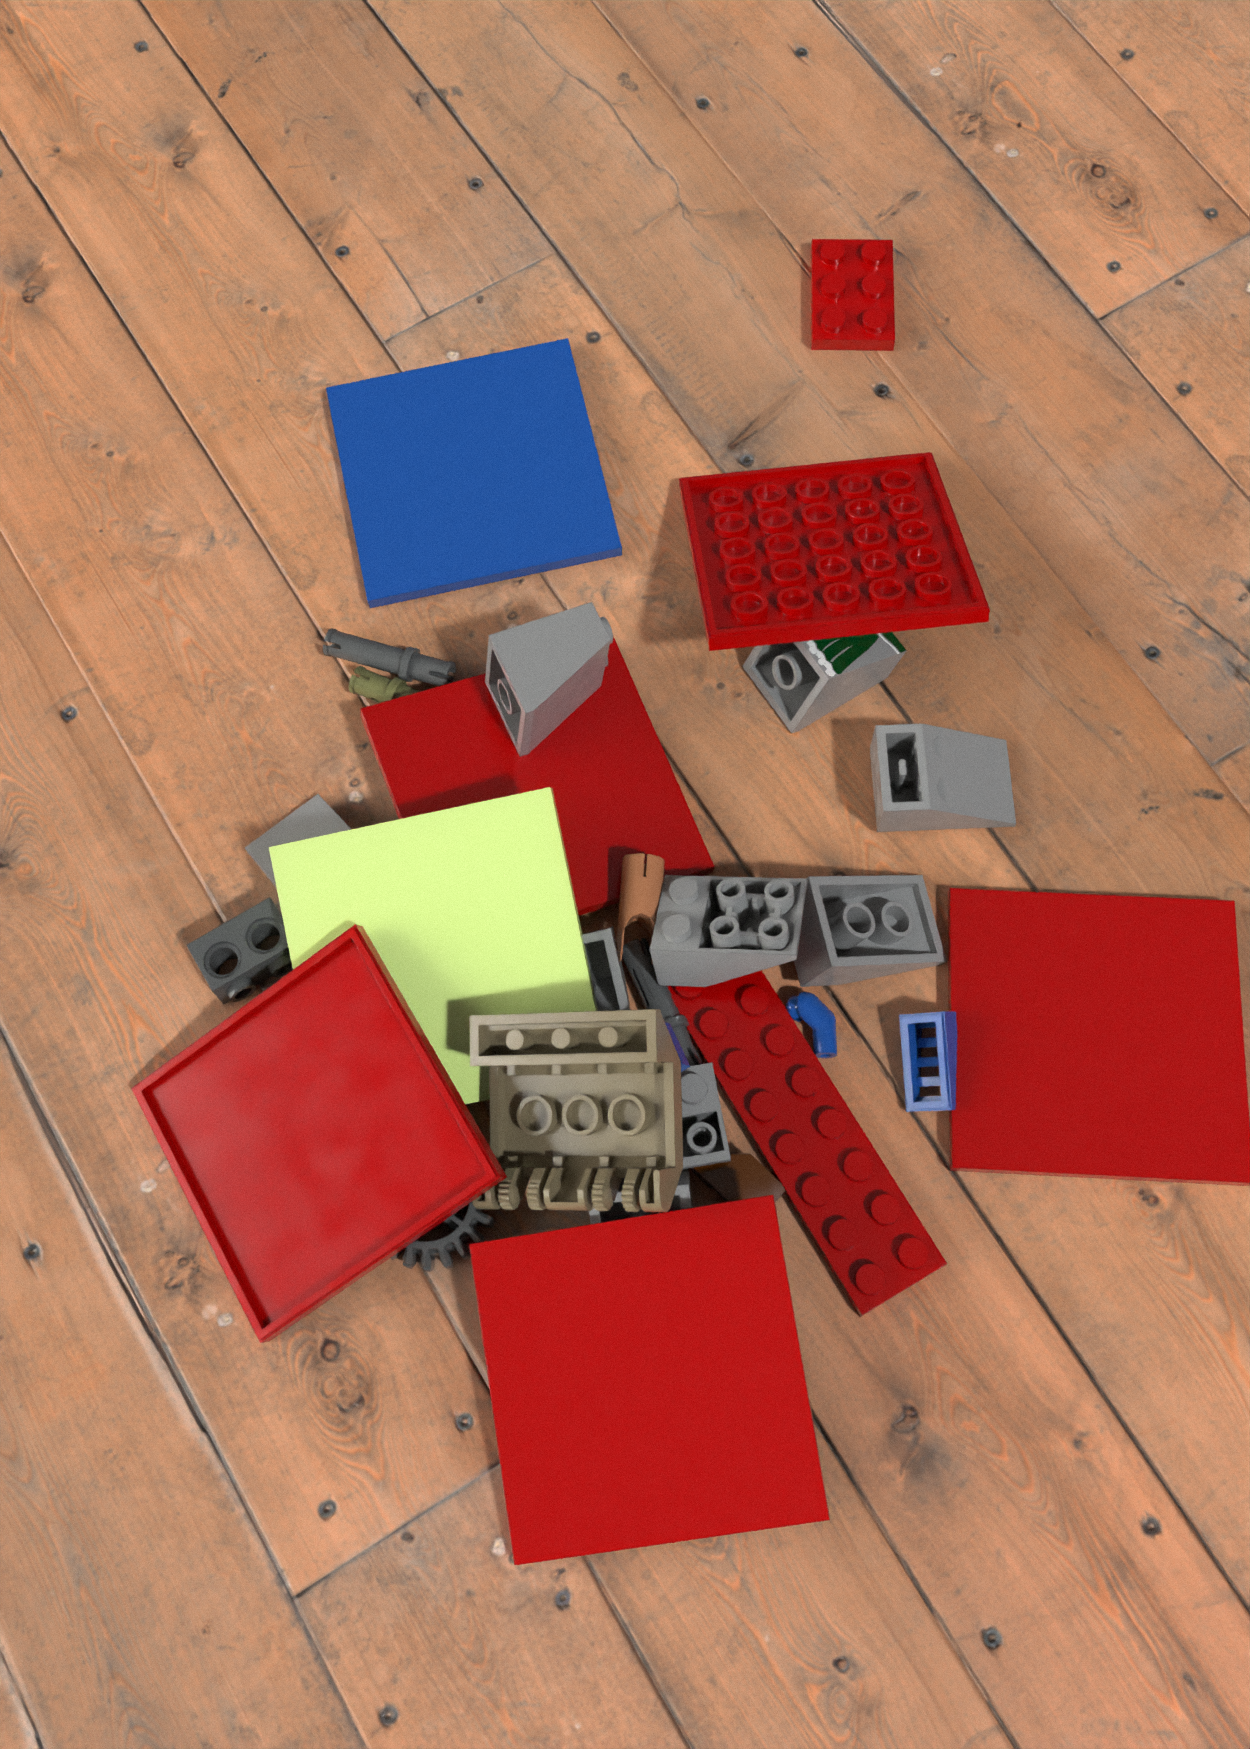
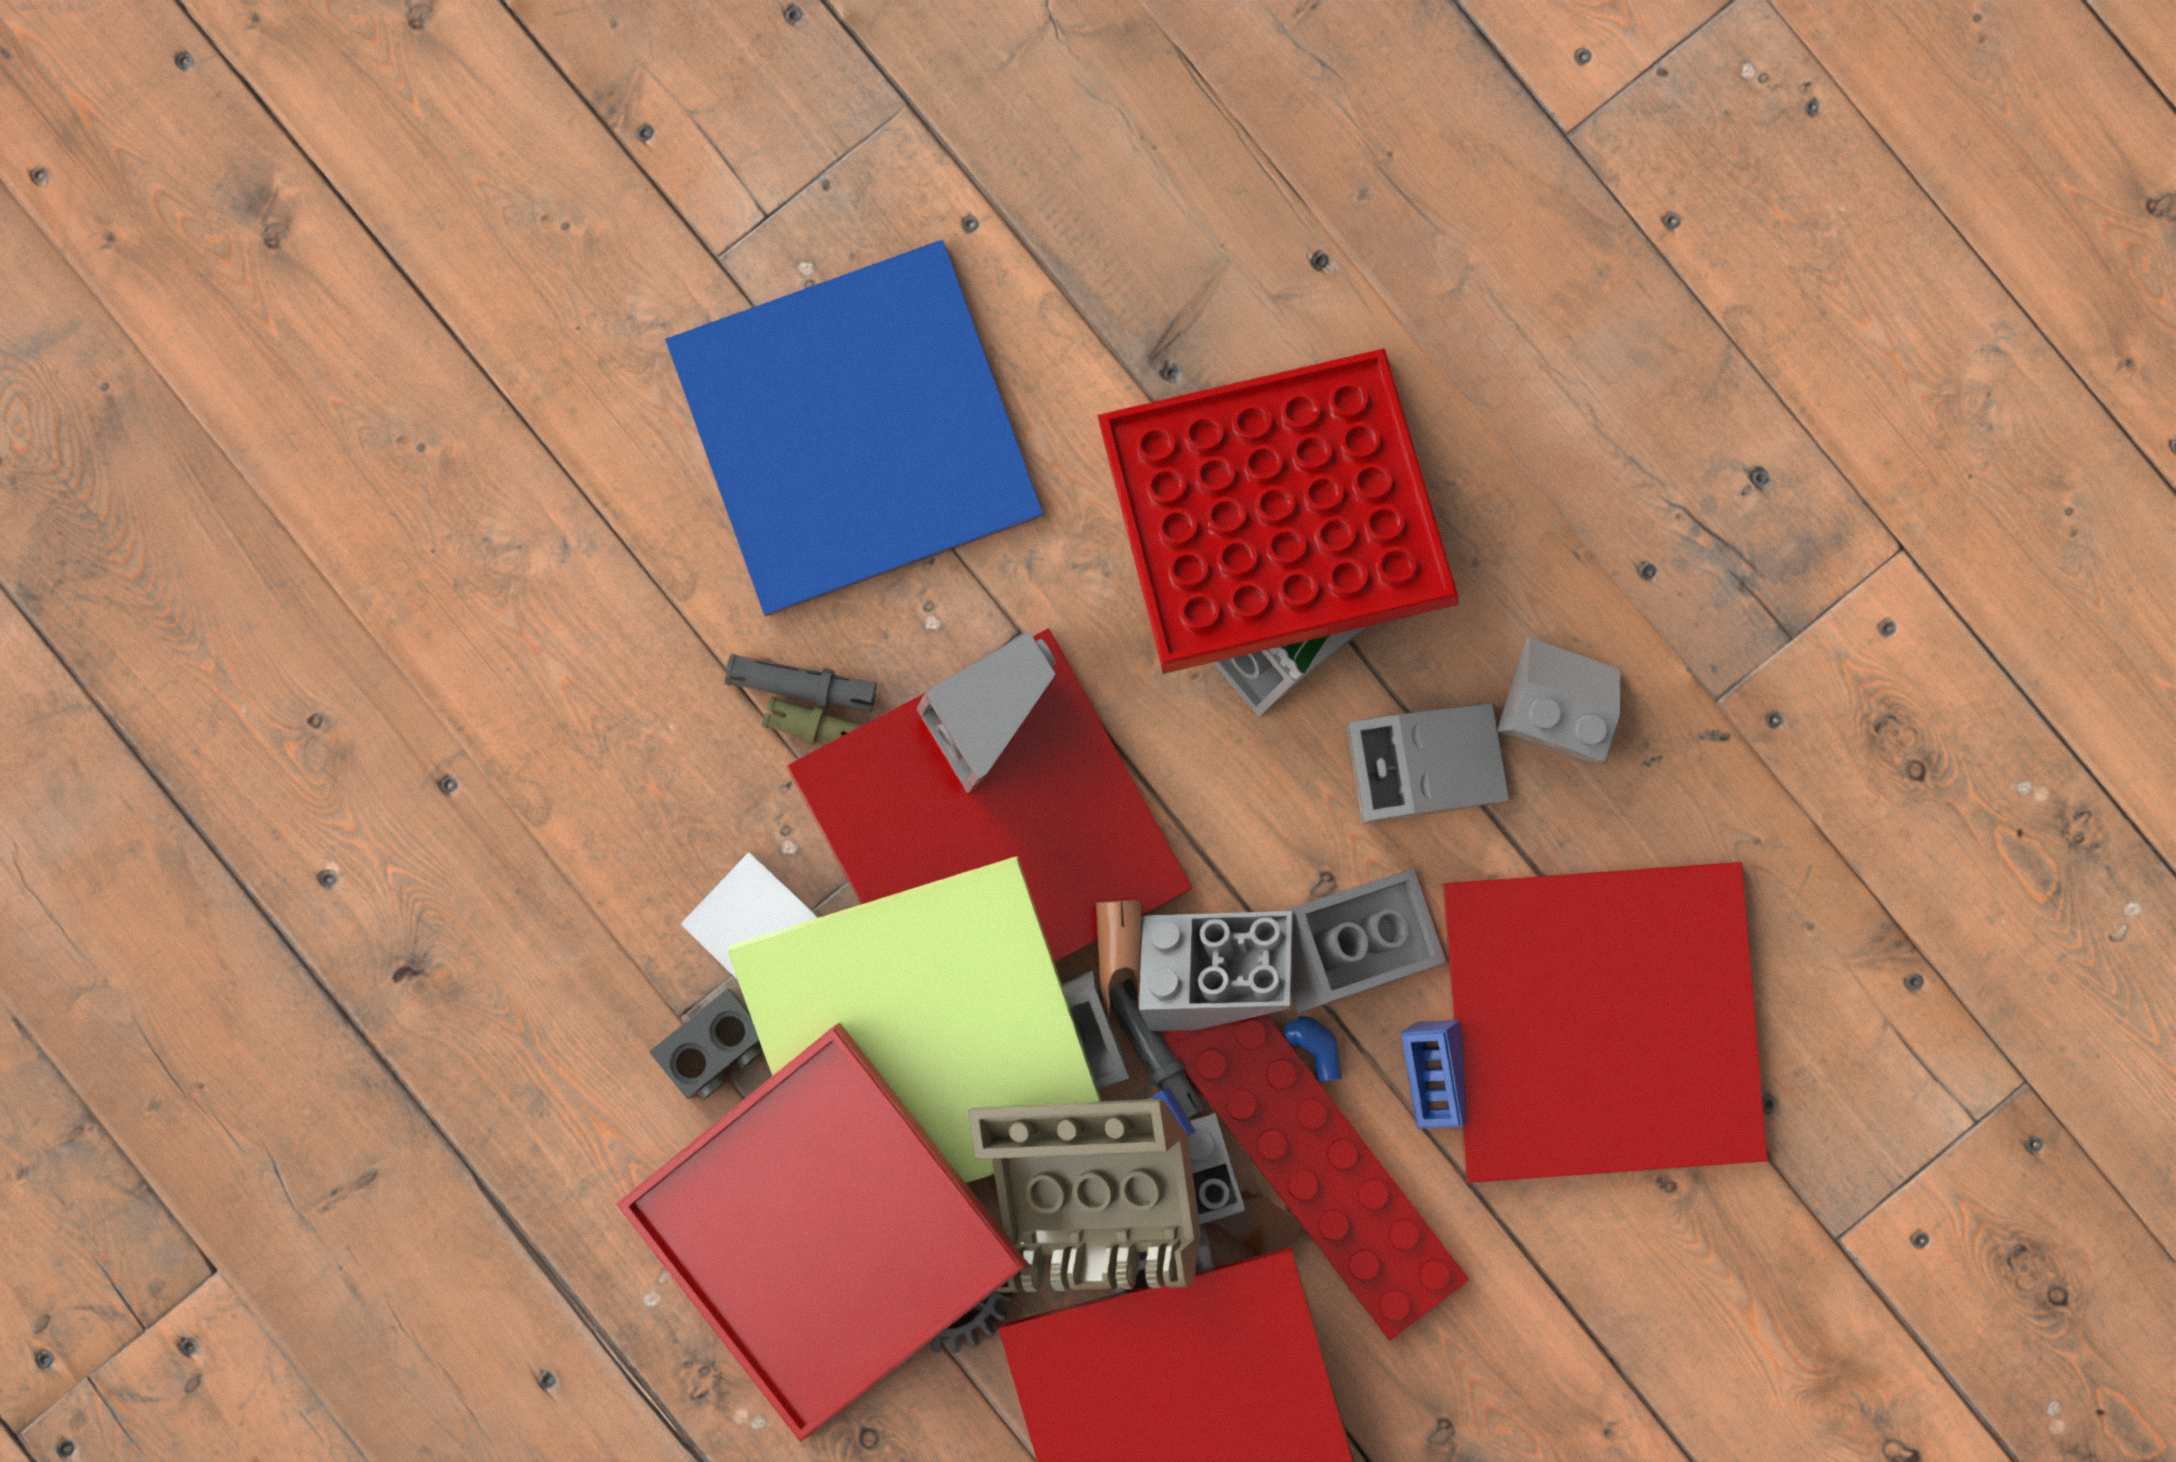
camera: 10 degrees left, 15 degrees up
(852, 295) = (1273, 135): red plate -> none
(1070, 747) = (1563, 702): none -> light grey slope

